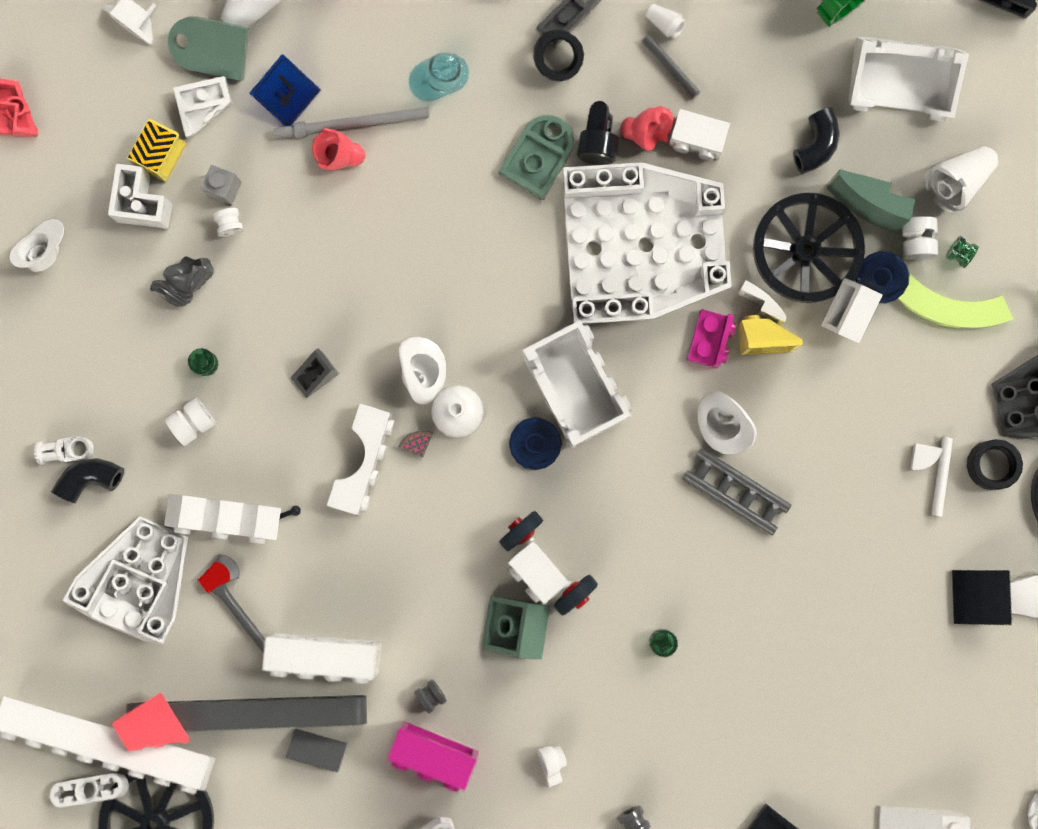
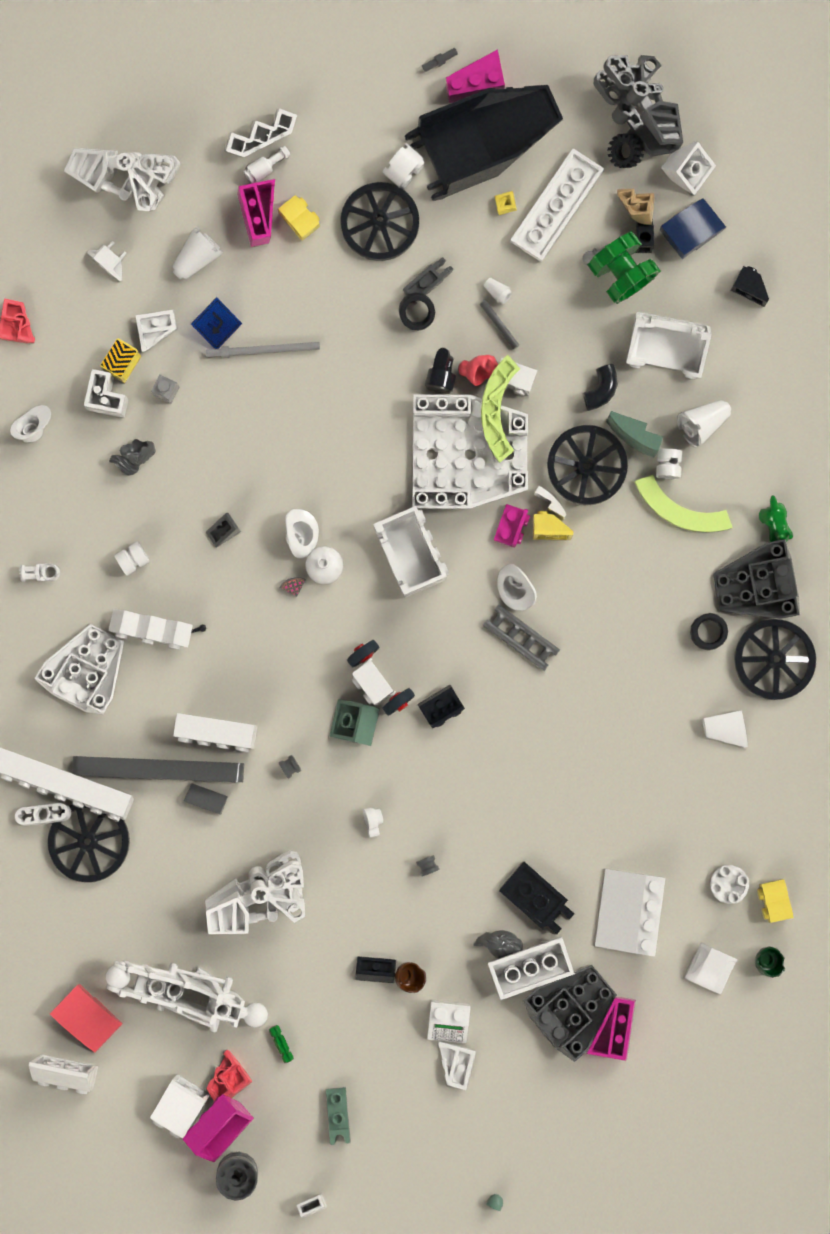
camera: 10 degrees right, 0 degrees up
(86, 473) = (54, 590): black cylinder -> none
(150, 726) = (91, 770): coral slope -> none
(198, 362) = (141, 513): clear green wheel -> none
(211, 48) = (165, 287): sand green tile -> none
(215, 580) = (141, 674): piece -> none
(228, 222) = (168, 416): white wheel -> none
(336, 150) = (243, 366): coral piece -> none
(352, 492) = (244, 617): white arch -> none
(433, 756) = (288, 808): dark pink piece -> none
(438, 76) = (328, 319): clear light blue piece -> none
(535, 443) = (378, 592): dark blue tile -> none
(538, 156) = (396, 384): sand green tile -> none
(635, 597) = (441, 706): none -> black bracket
(659, 640) = (457, 743): clear green wheel -> none
(673, 178) = (492, 407): none -> yellowish green tile
(851, 310) = (613, 512): white piece -> none
(884, 274) = (639, 490): dark blue tile -> none
(924, 456) = (659, 622): white tile -> none
(942, 476) = (671, 637): white bar -> none
(962, 251) = (701, 477): clear green wheel -> none
(981, 597) = (690, 725): black slope -> none

